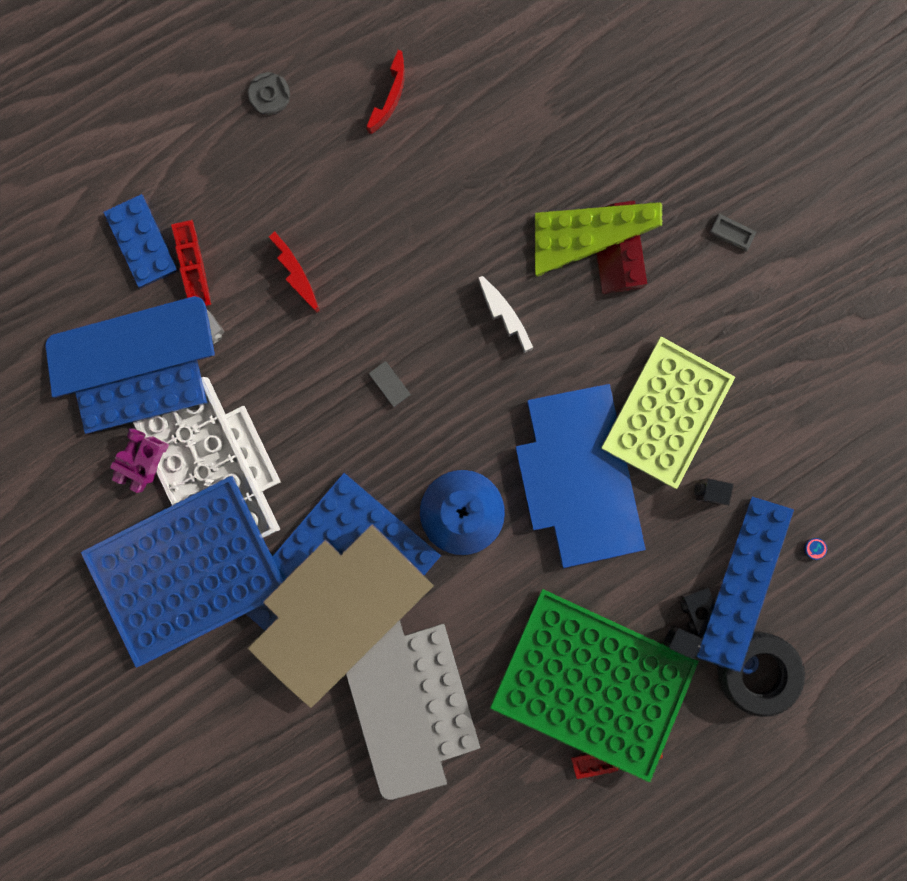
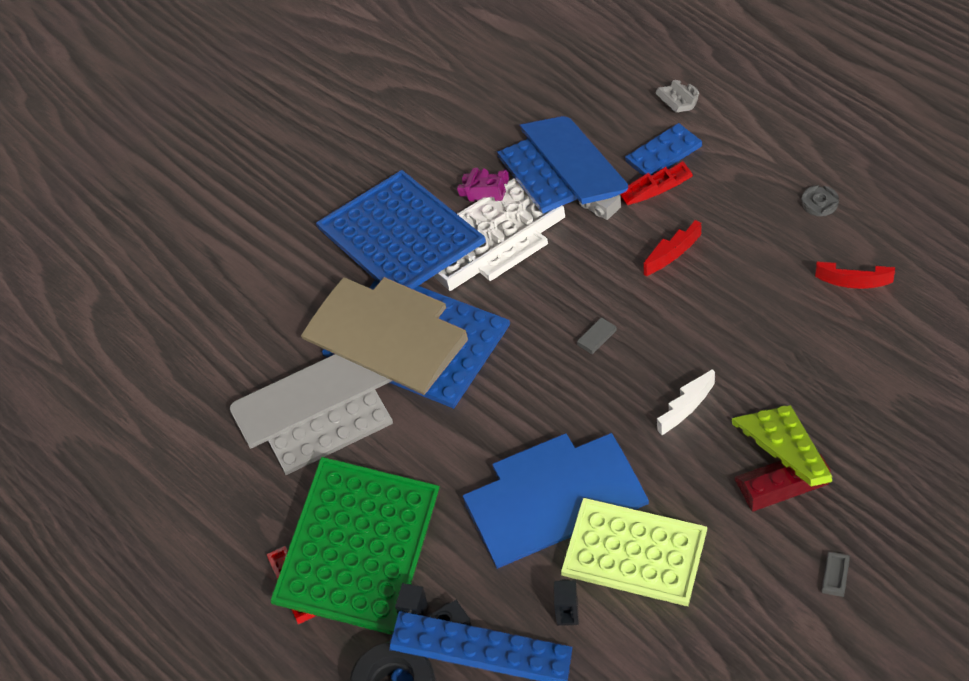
camera: 85 degrees right, 35 degrees down
(59, 199) = (679, 96): none -> light grey slope
(473, 531) = (496, 411): blue cone -> none

